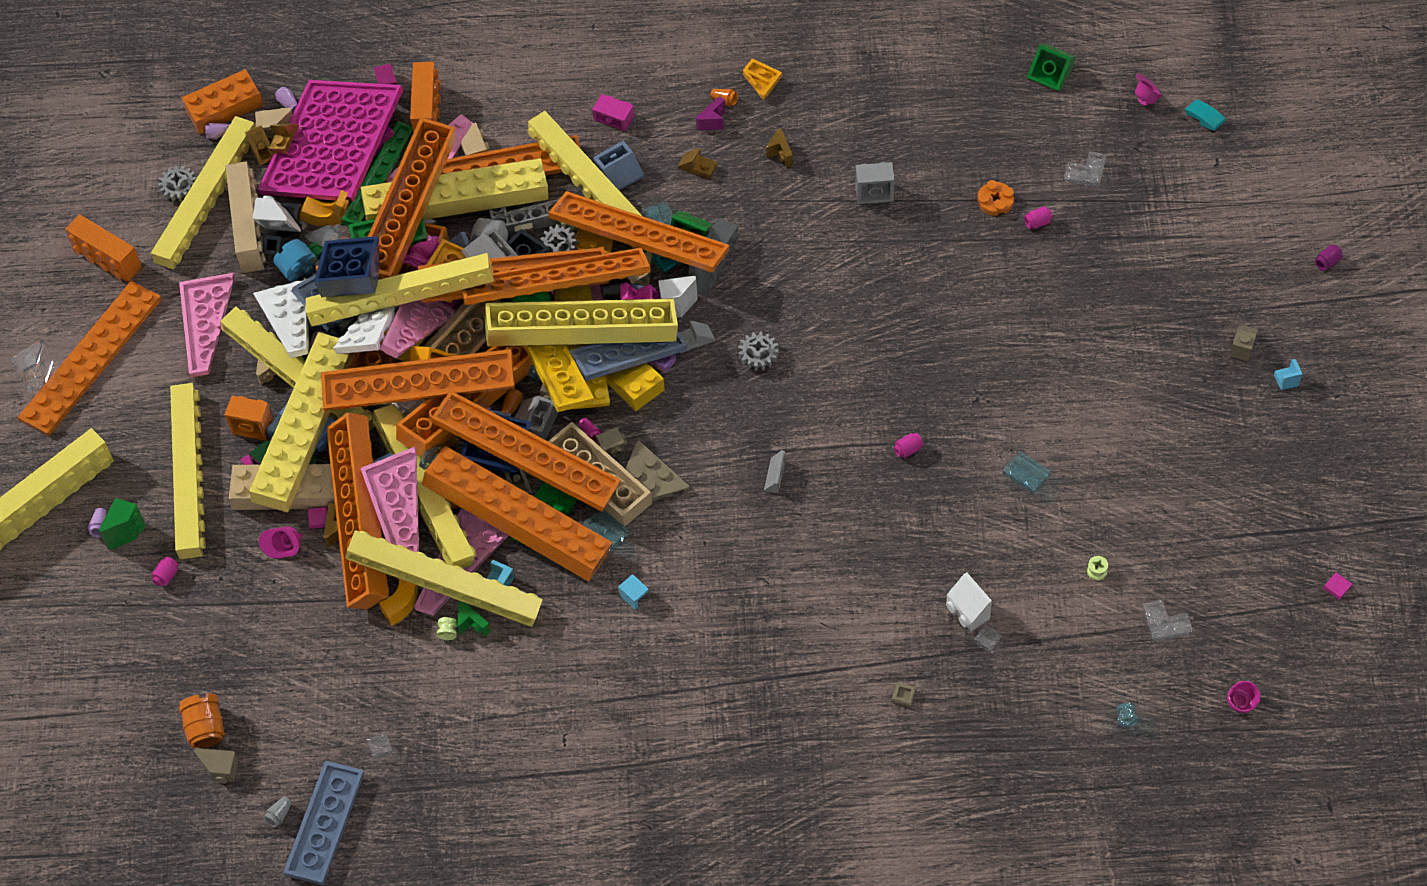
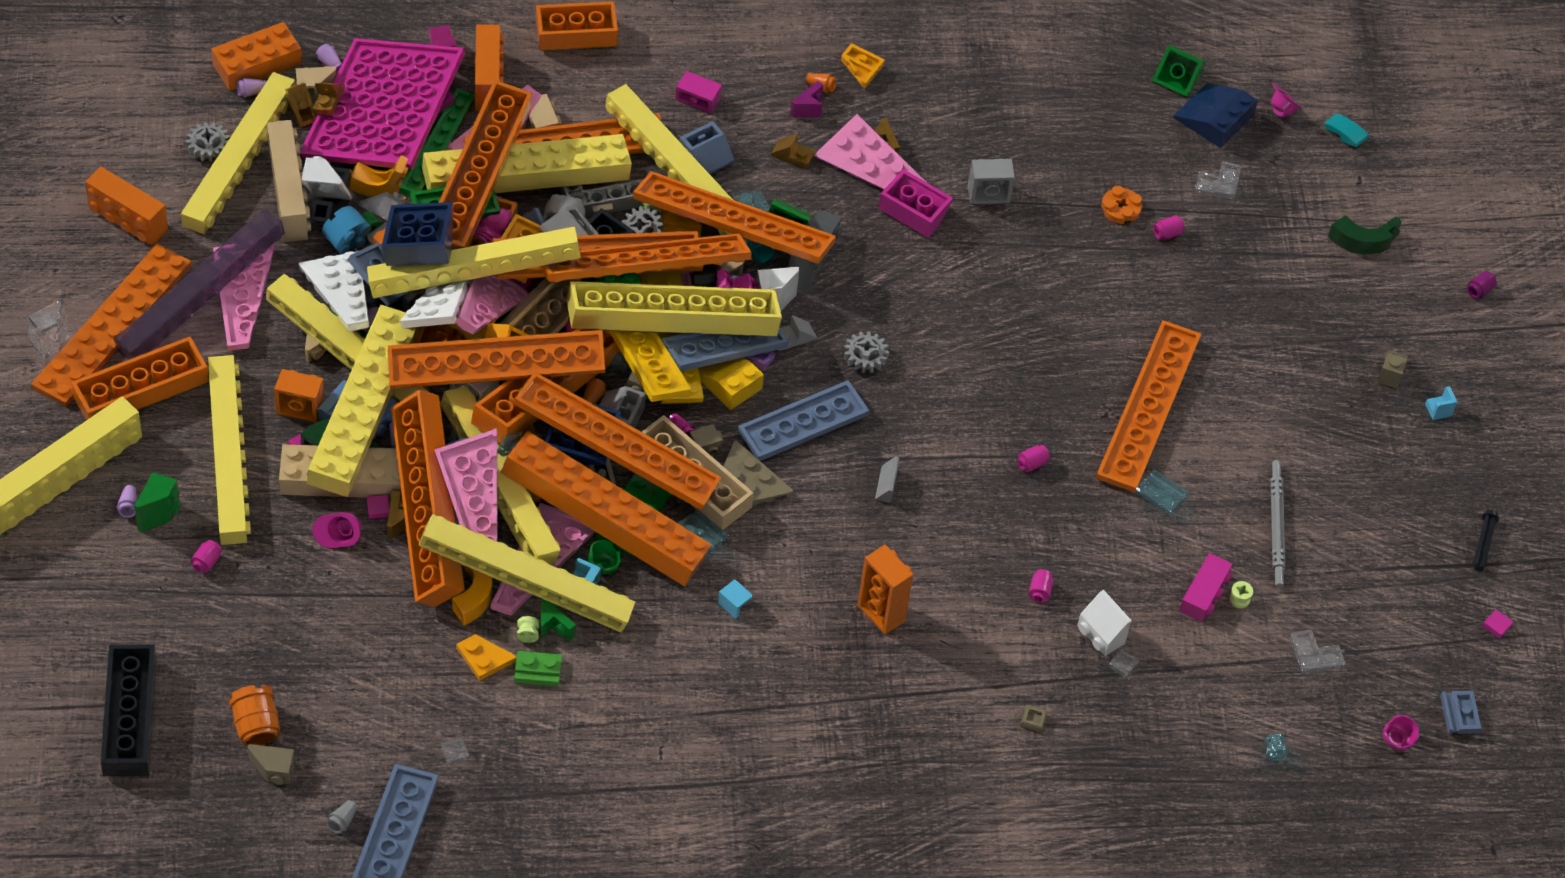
camera: 10 degrees left, 5 degrees down
(91, 720) = (128, 710): none -> black brick
(113, 408) = (143, 378): none -> orange brick
(165, 320) = (200, 285): none -> clear purple brick
(408, 655) = (483, 656): none -> light orange wing
(456, 664) = (537, 668): none -> bright green plate
(505, 56) = (576, 25): none -> orange brick
(517, 557) = (604, 556): none -> green hair
(700, 419) = (803, 420): none -> sand blue plate
(766, 167) = (863, 154): none -> bright pink wing
(766, 580) = (885, 589): none -> orange brick
(805, 207) = (915, 203): none -> dark pink slope
(912, 568) = (1041, 586): none -> dark pink brick
(1015, 390) = (1148, 406): none -> orange plate
(1065, 563) = (1206, 588): none -> dark pink brick
(1085, 105) = (1217, 112): none -> dark blue slope
(1133, 498) = (1277, 524): none -> light grey axle
(1217, 220) = (1363, 240): none -> dark green arch
(1301, 674) = (1460, 712): none -> sand blue plate
(1332, 484) = (1490, 518): none -> black axle

